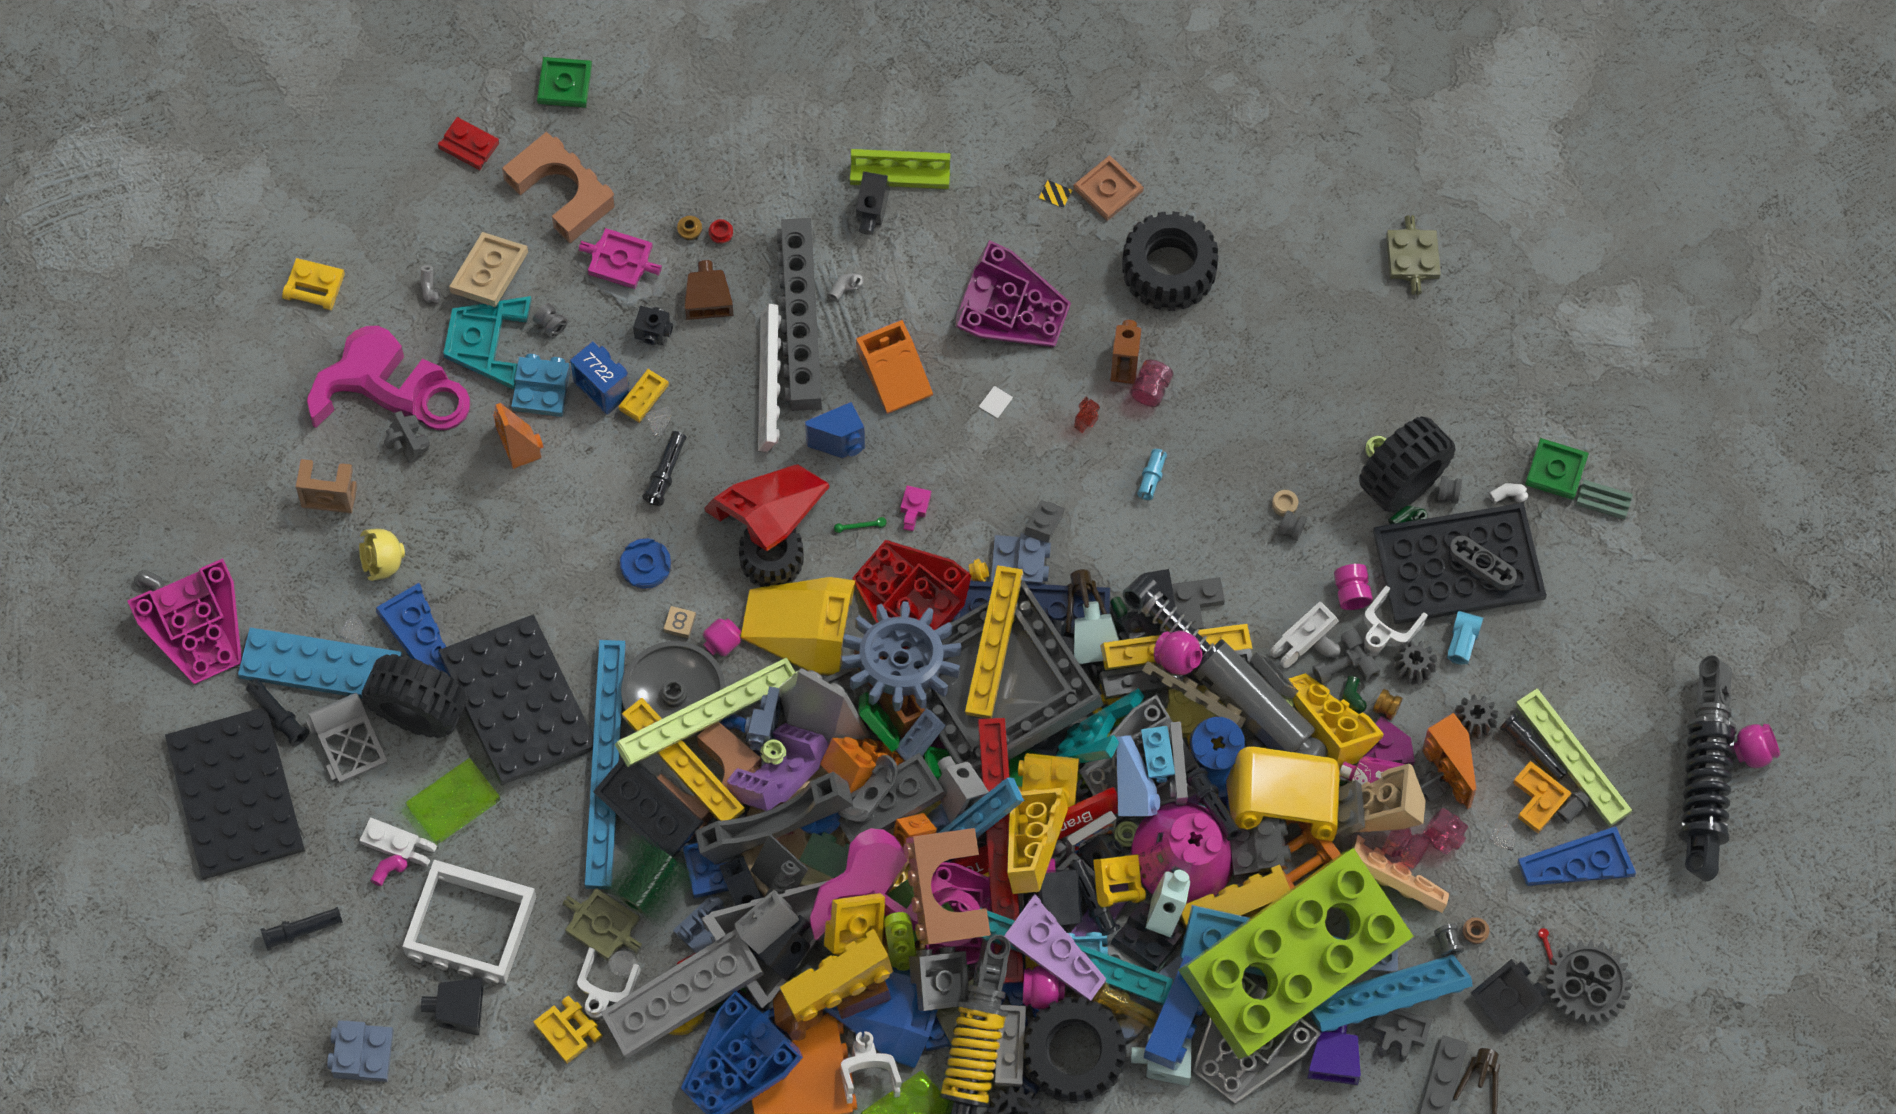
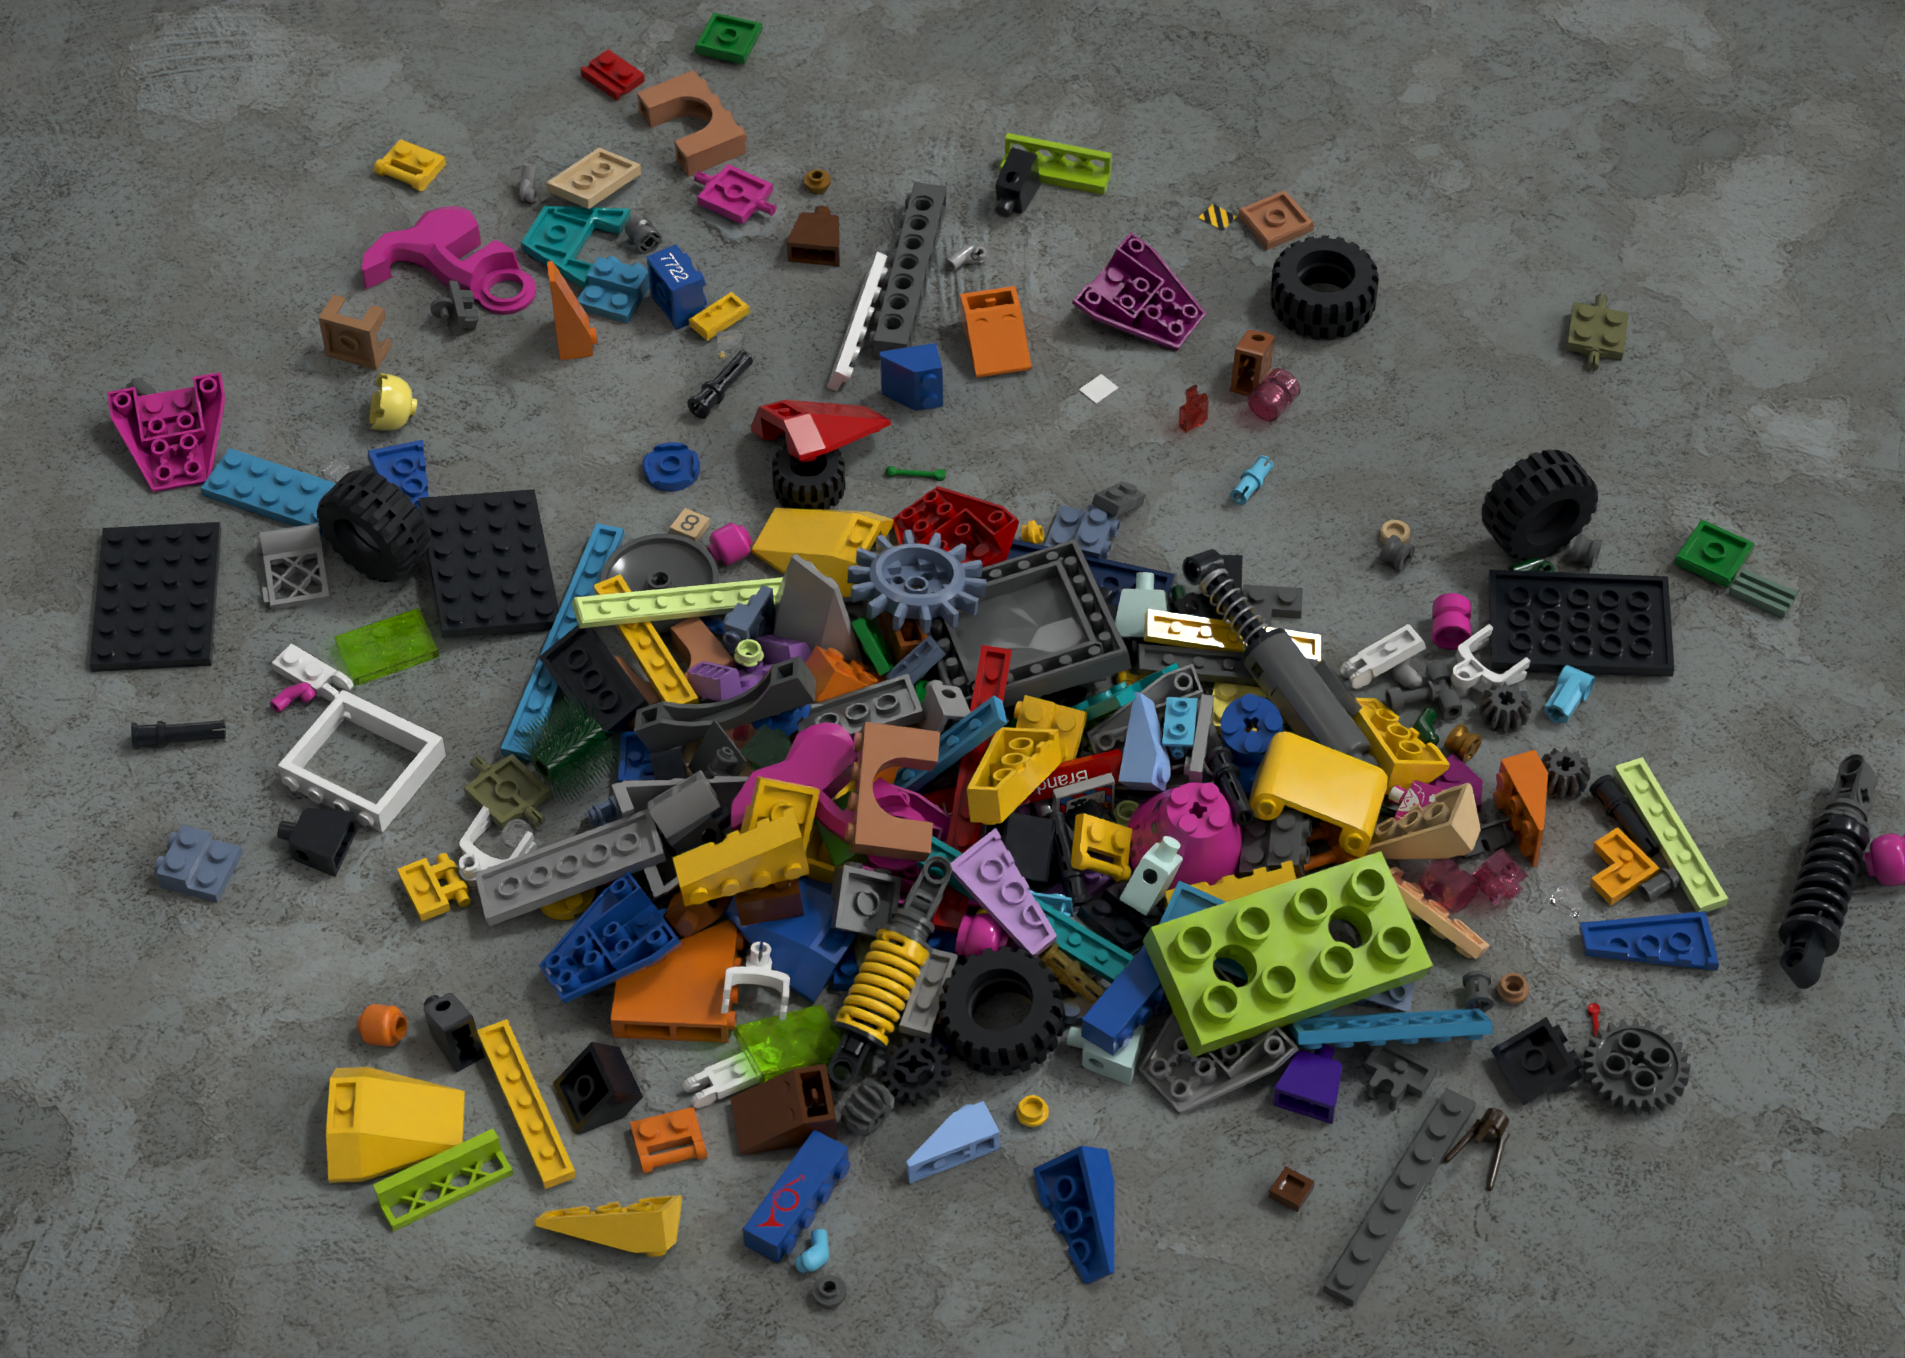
camera: 15 degrees right, 15 degrees down
(284, 720) = (232, 537): black pin -> none
(652, 325) = (748, 253): black brick -> none
(720, 231) = (849, 188): red plate -> none
(882, 779) = (858, 689): dark grey piece -> none
(899, 939) = (827, 841): lime plate -> none
(914, 504) = (980, 463): dark pink plate -> none
(994, 642) = (1026, 582): yellow plate -> none
(1081, 585) = (1141, 561): dark brown plant -> none
(1178, 652) = (1228, 627): dark pink piece -> none
(1188, 688) = (1233, 671): dark tan wing -> none
(1350, 809) = (1390, 826): dark grey plate -> none
(1502, 566) = (1611, 634): dark grey beam -> none
(1508, 489) = (1653, 564): white arm -> none

